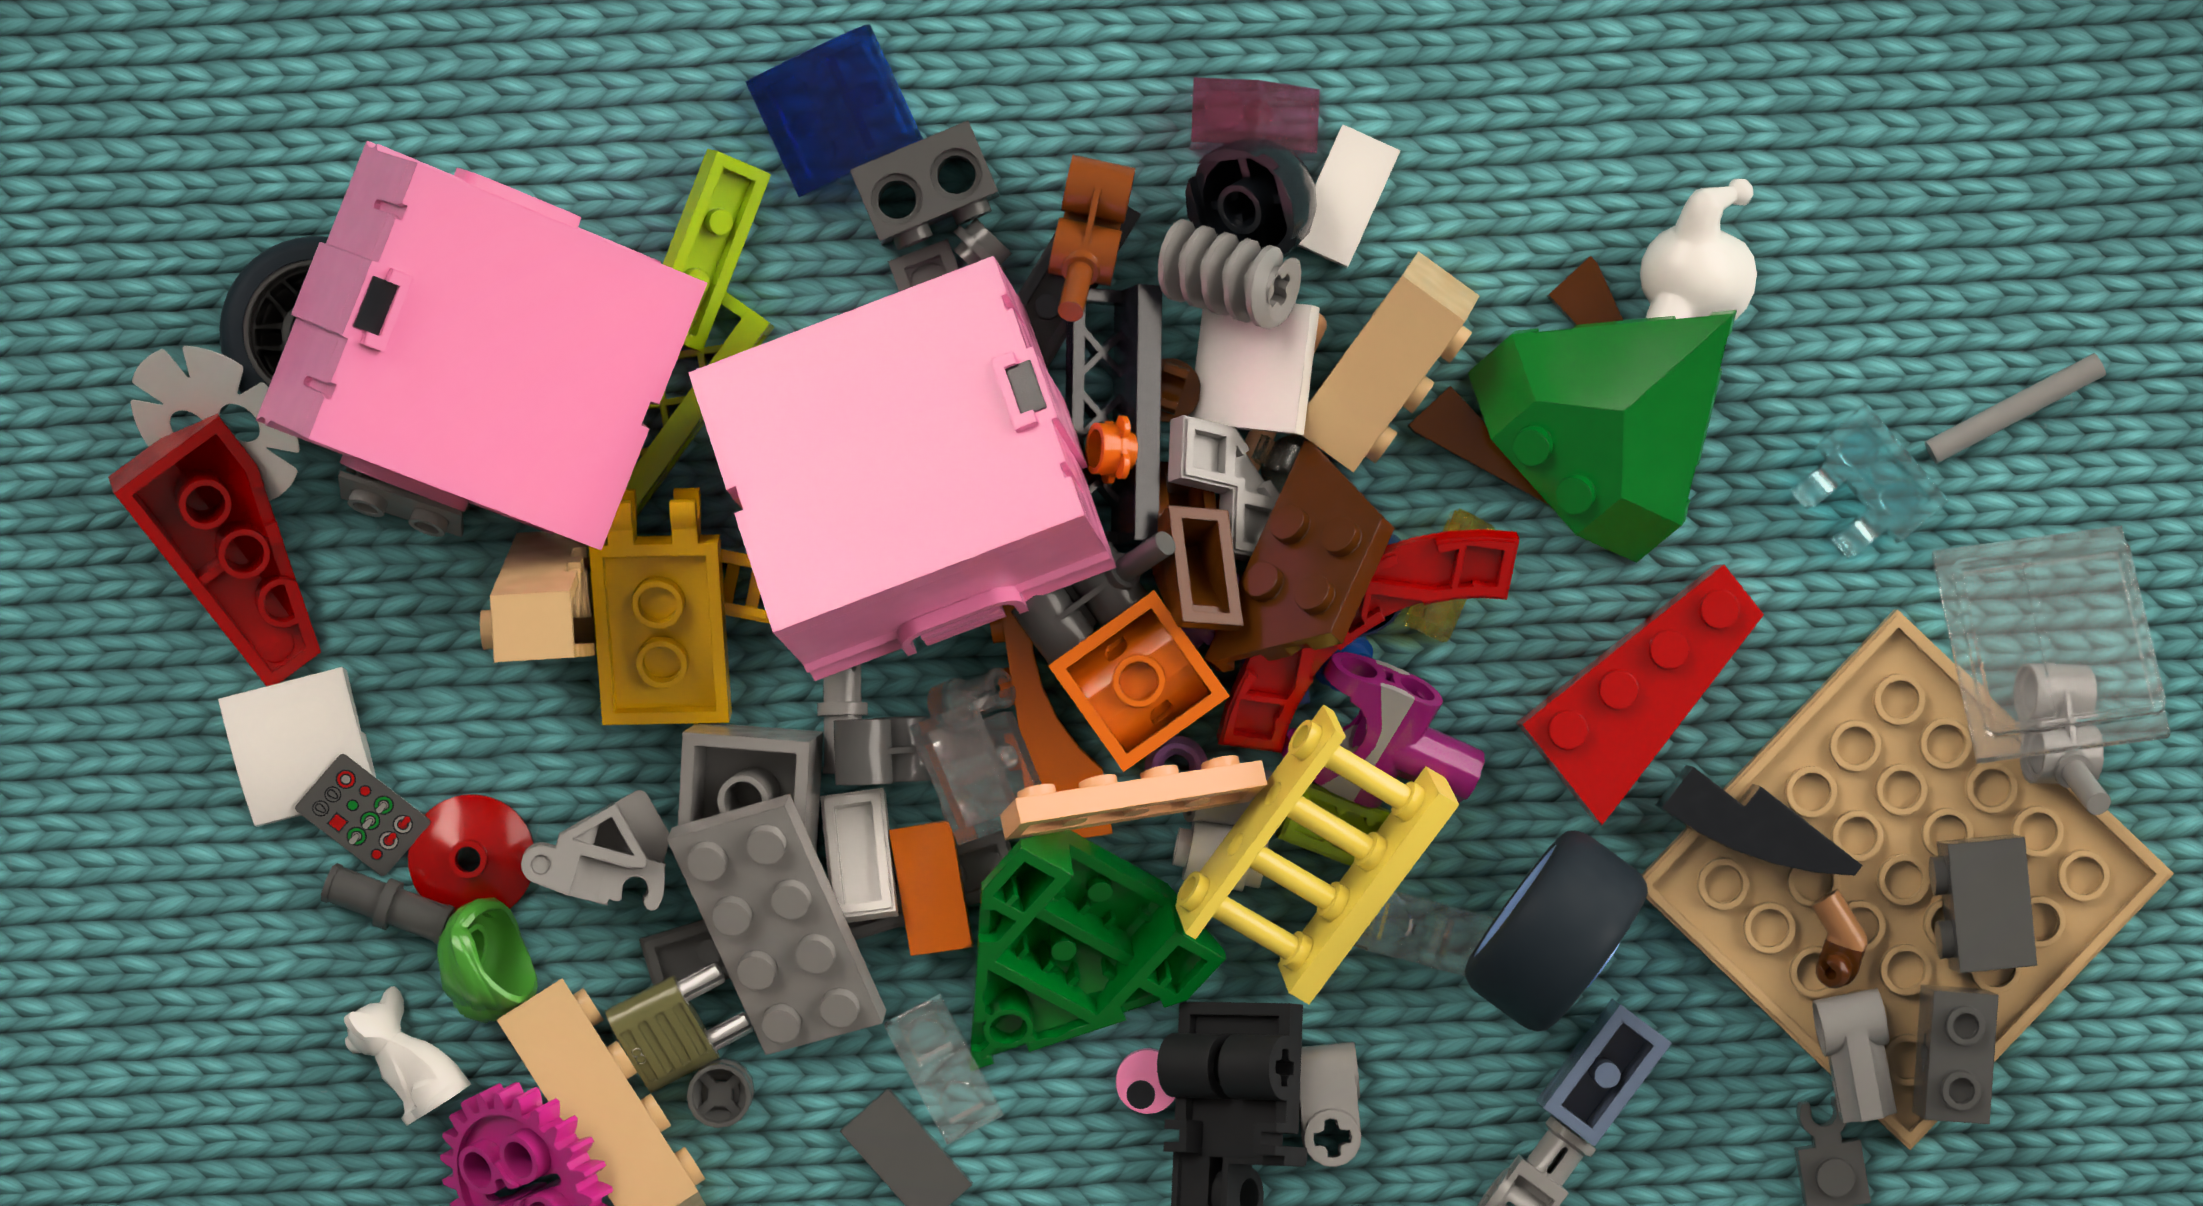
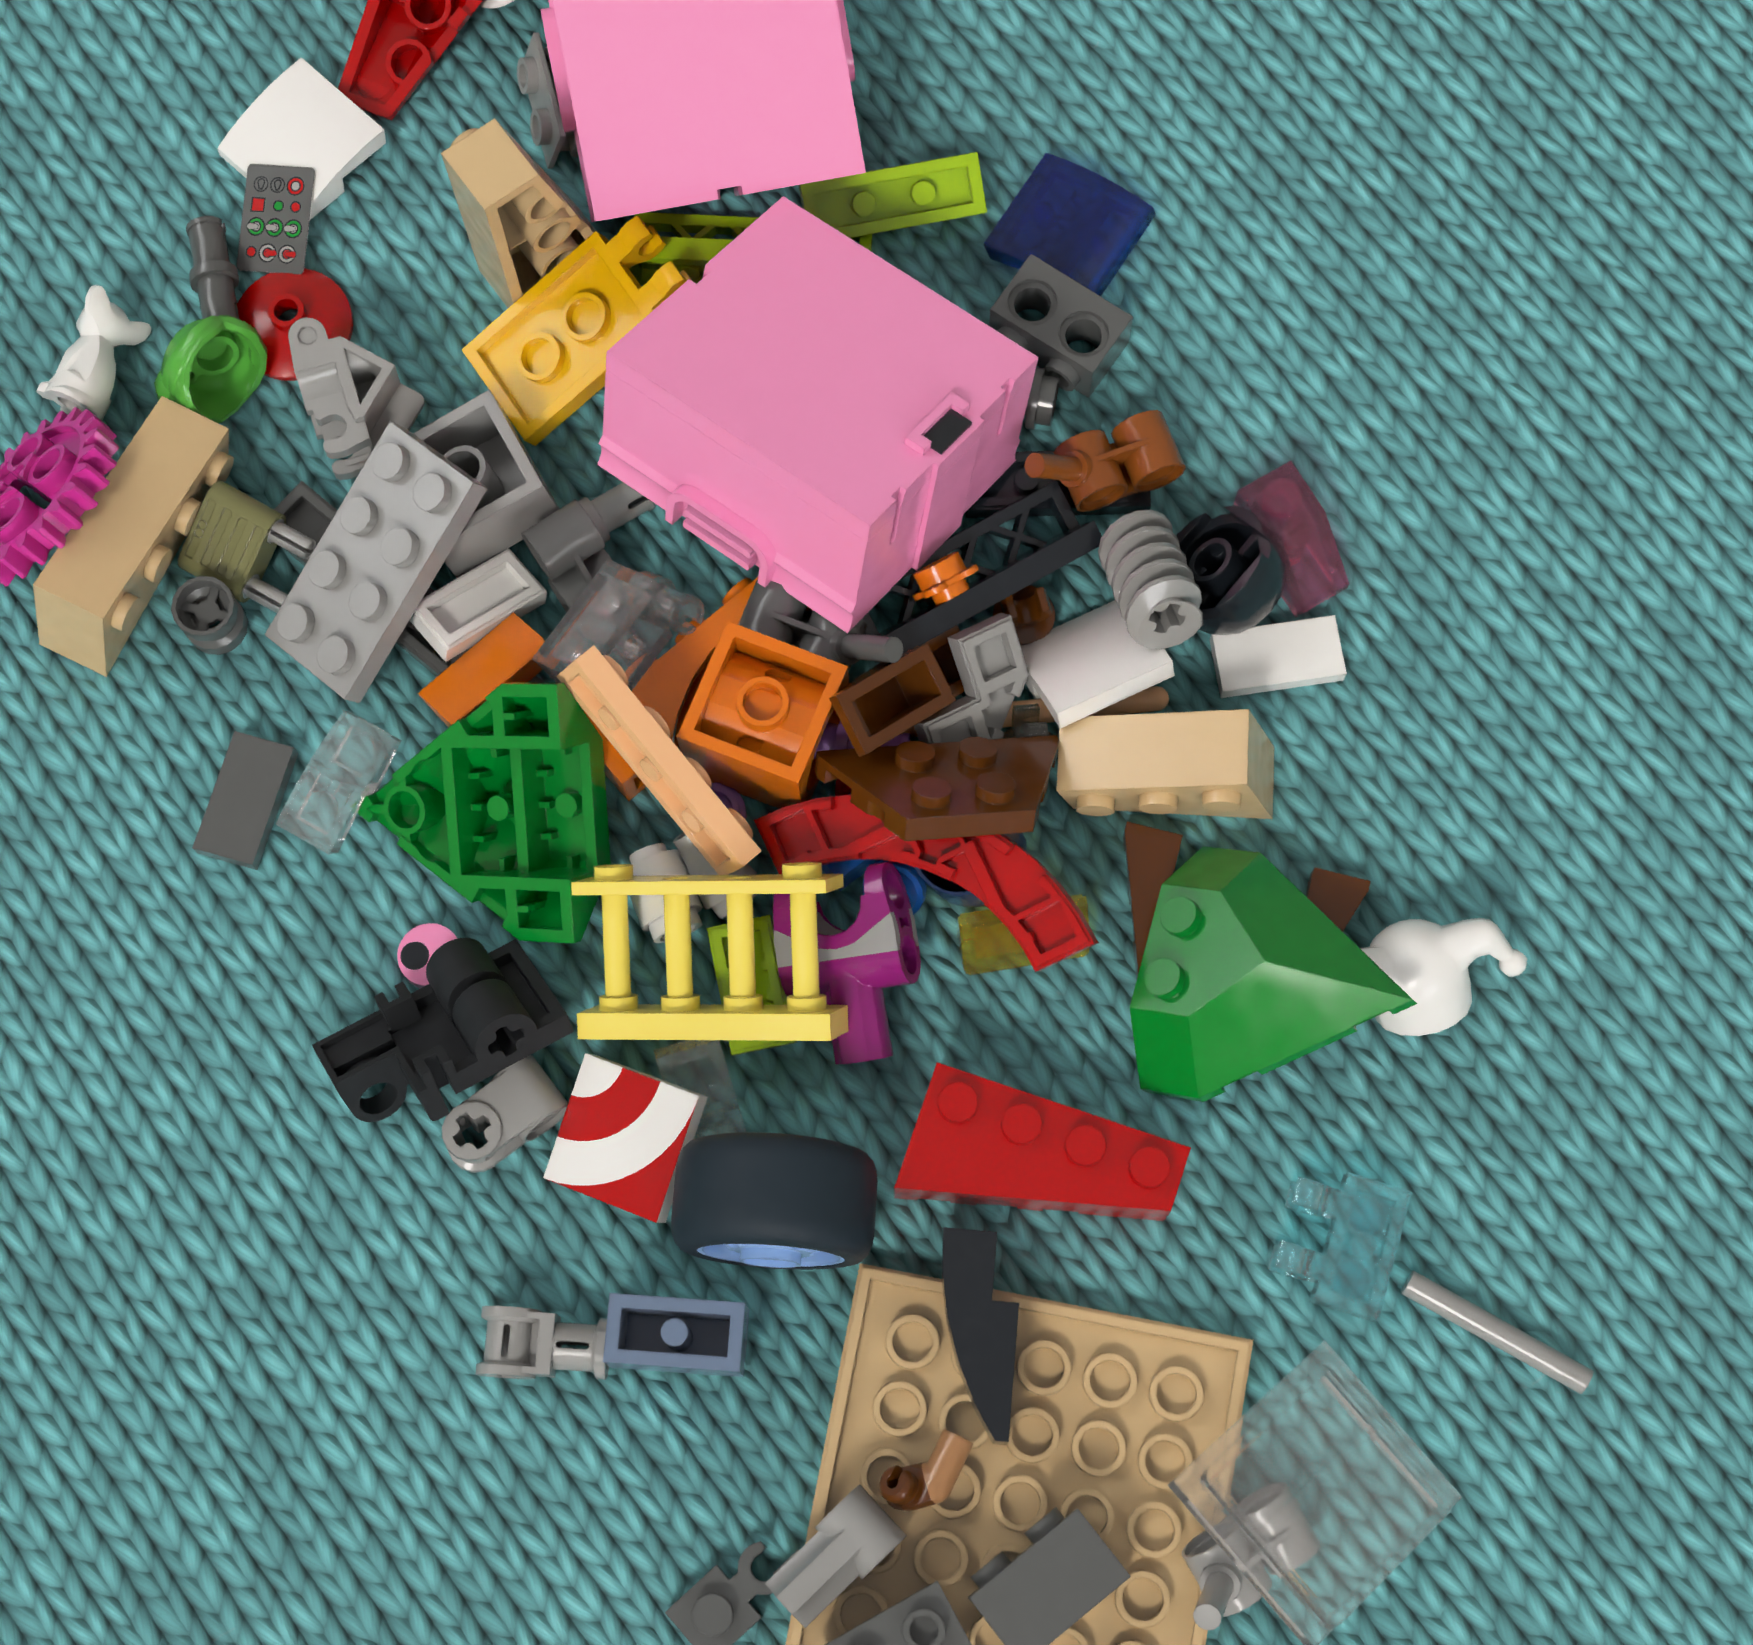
camera: 65 degrees right, 15 degrees down
(1412, 1014) = (624, 1137): none -> tile

